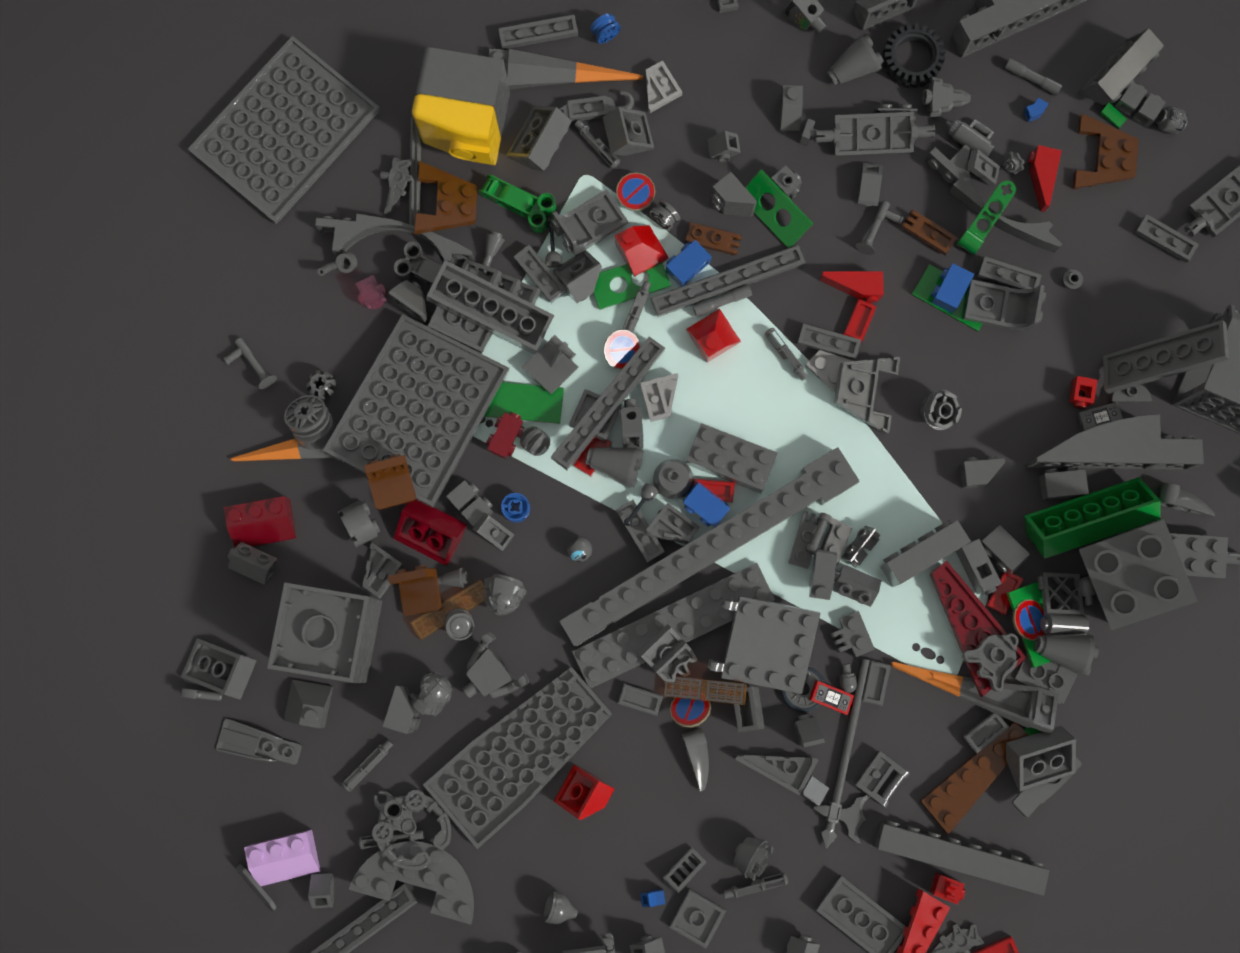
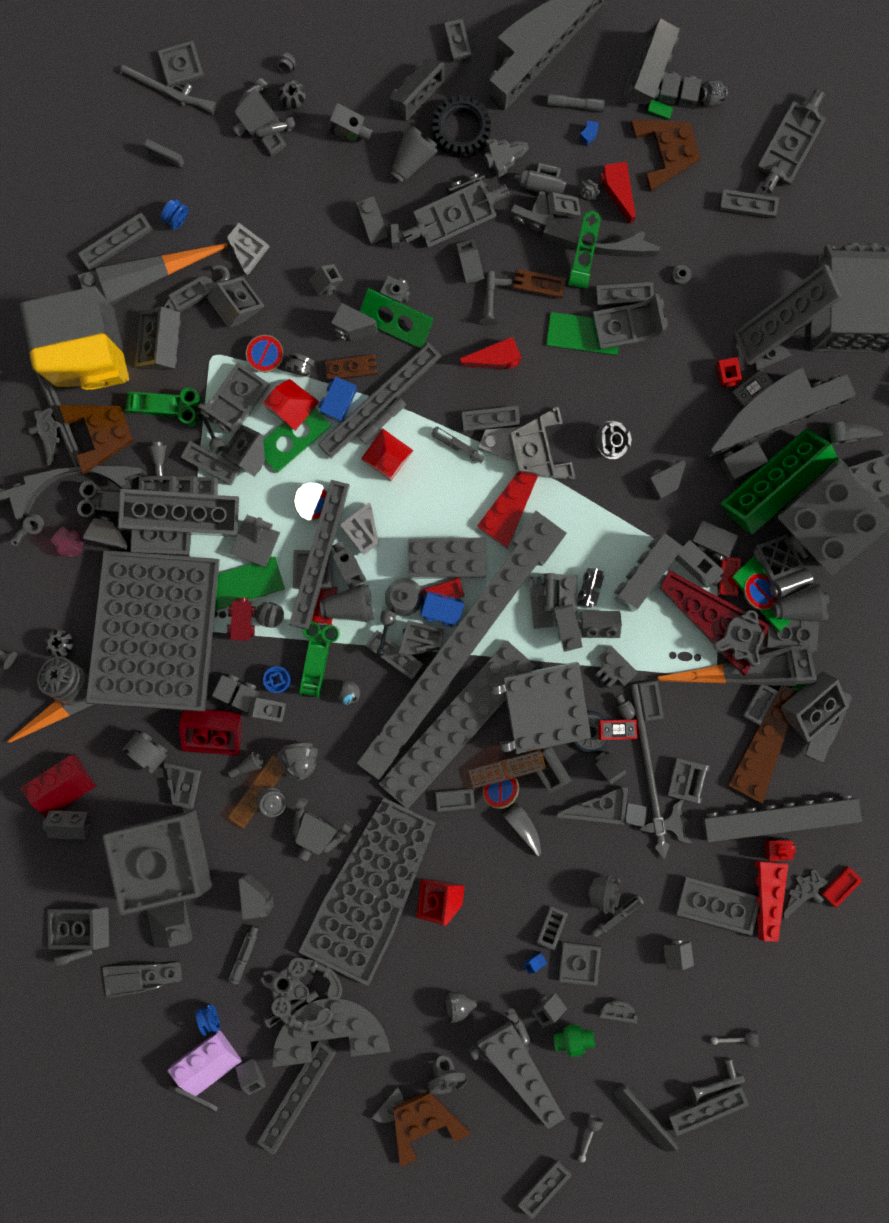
camera: 25 degrees left, 5 degrees up
(305, 814) = (208, 1019): none -> blue wheel
(390, 481) = (157, 706): reddish brown bracket -> none
(417, 590) = (222, 787): reddish brown bracket -> none
(433, 695) = (275, 872): dark grey helmet -> none
(562, 503) = (316, 659): none -> green piece
(597, 144) = (212, 323): dark grey piece -> none
(637, 307) = (309, 458): dark grey piece -> none
(668, 654) = (462, 752): dark grey plate -> none
(809, 436) = (507, 510): none -> red wing
(860, 320) = (510, 387): red tile -> none
(952, 288) = (579, 326): blue brick -> none

